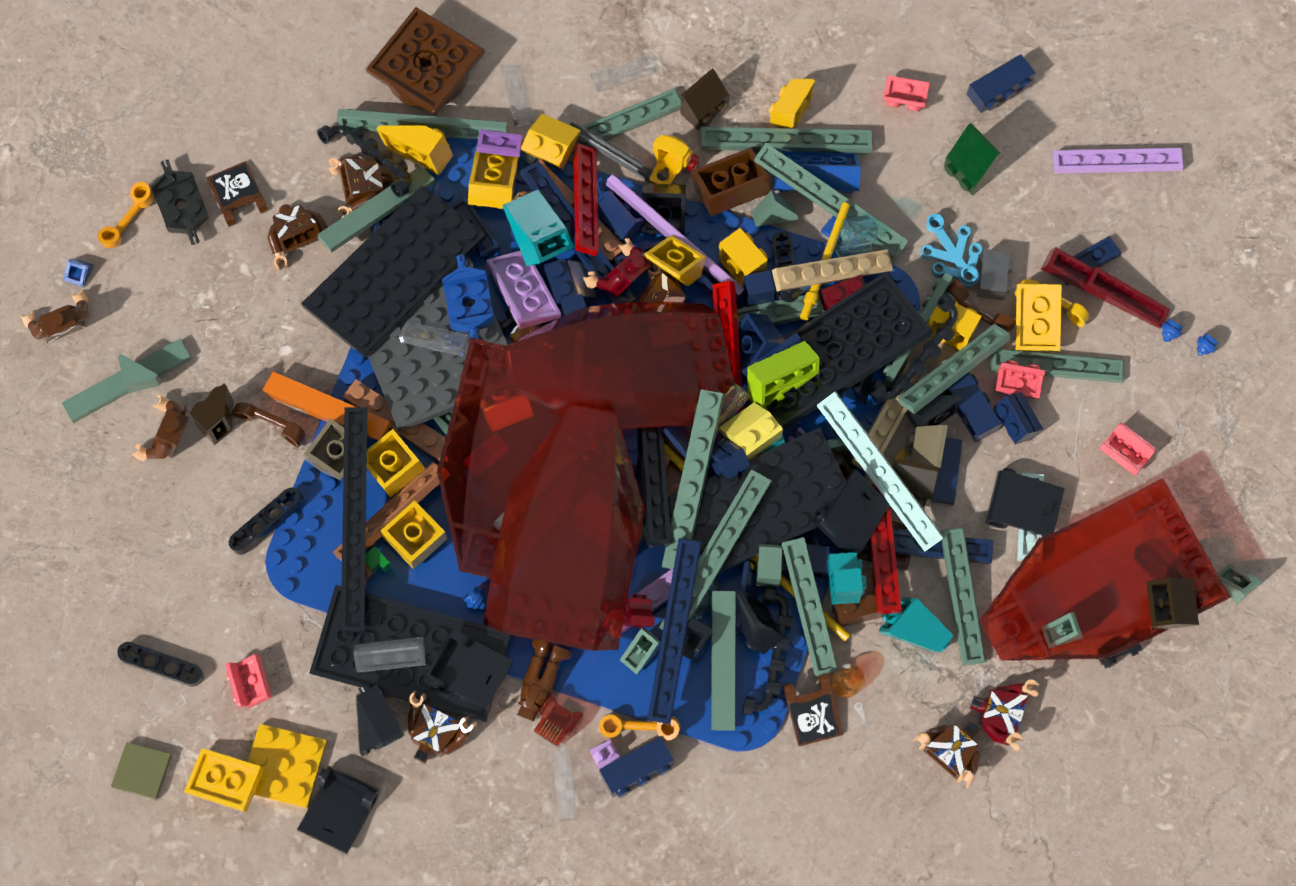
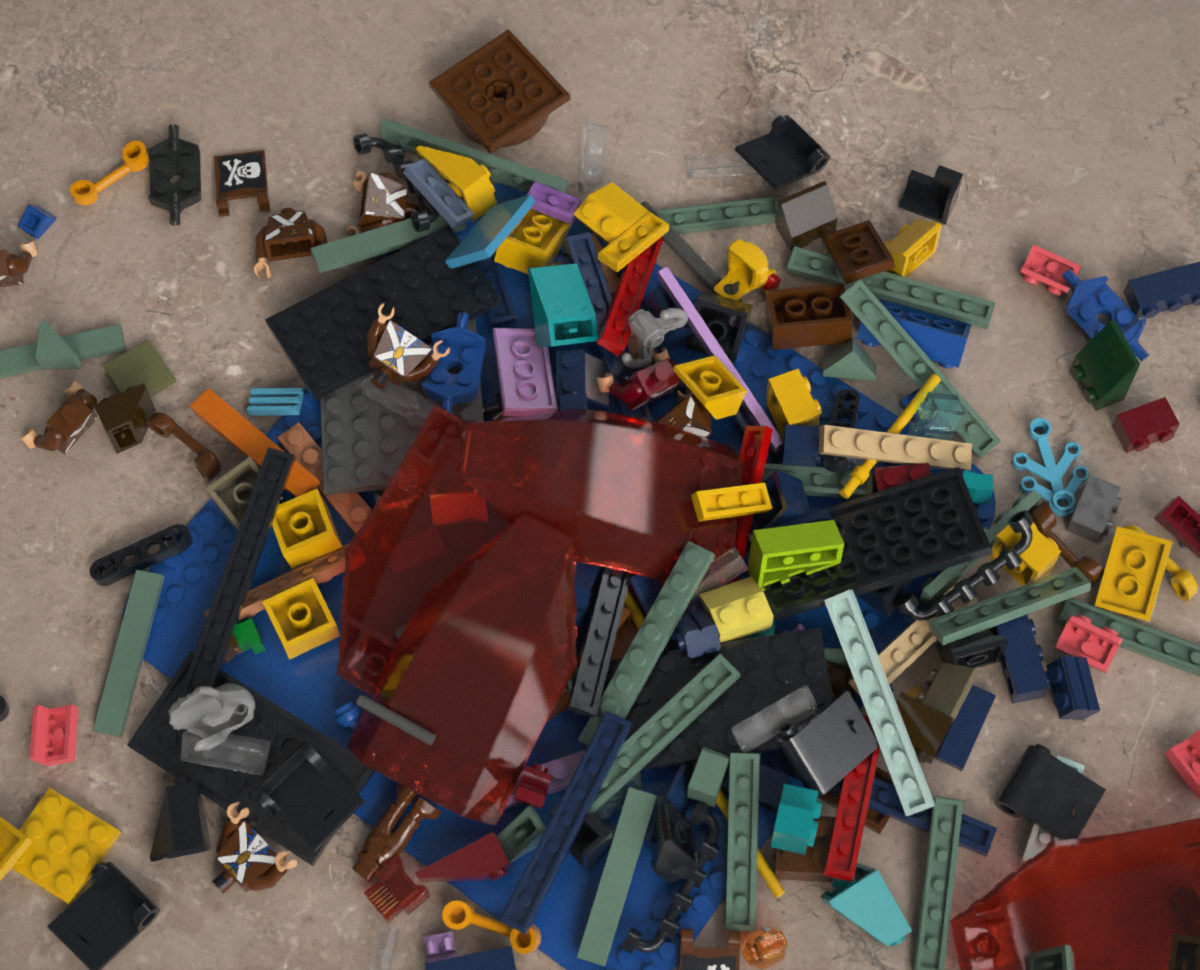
camera: 20 degrees right, 5 degrees down
(208, 372) = (138, 367): none -> olive tile
(284, 601) = (129, 653): none -> sand green tile
(328, 364) = (276, 397): none -> medium azure tile
(374, 628) = (213, 713): none -> light grey hair
(406, 161) = (438, 193): none -> sand blue plate
(421, 303) = (397, 353): none -> torso
(460, 182) = (490, 231): none -> dark azure tile
(521, 592) = (396, 720): none -> dark grey bar
(575, 158) = (633, 241): none -> yellow tile
(611, 682) = (473, 862): none -> dark red slope
(615, 230) = (651, 333): none -> light grey piece
(669, 52) = (784, 153): none -> black door
(722, 349) = (731, 501): none -> yellow plate
(754, 118) = (858, 252): none -> reddish brown tile
(796, 56) = (932, 196): none -> black panel
(805, 509) = (767, 722): none -> clear slope
(905, 281) = (979, 486): none -> teal piece
(947, 105) = (1095, 298): none -> blue plate
(1014, 197) = (1146, 425): none -> dark red brick

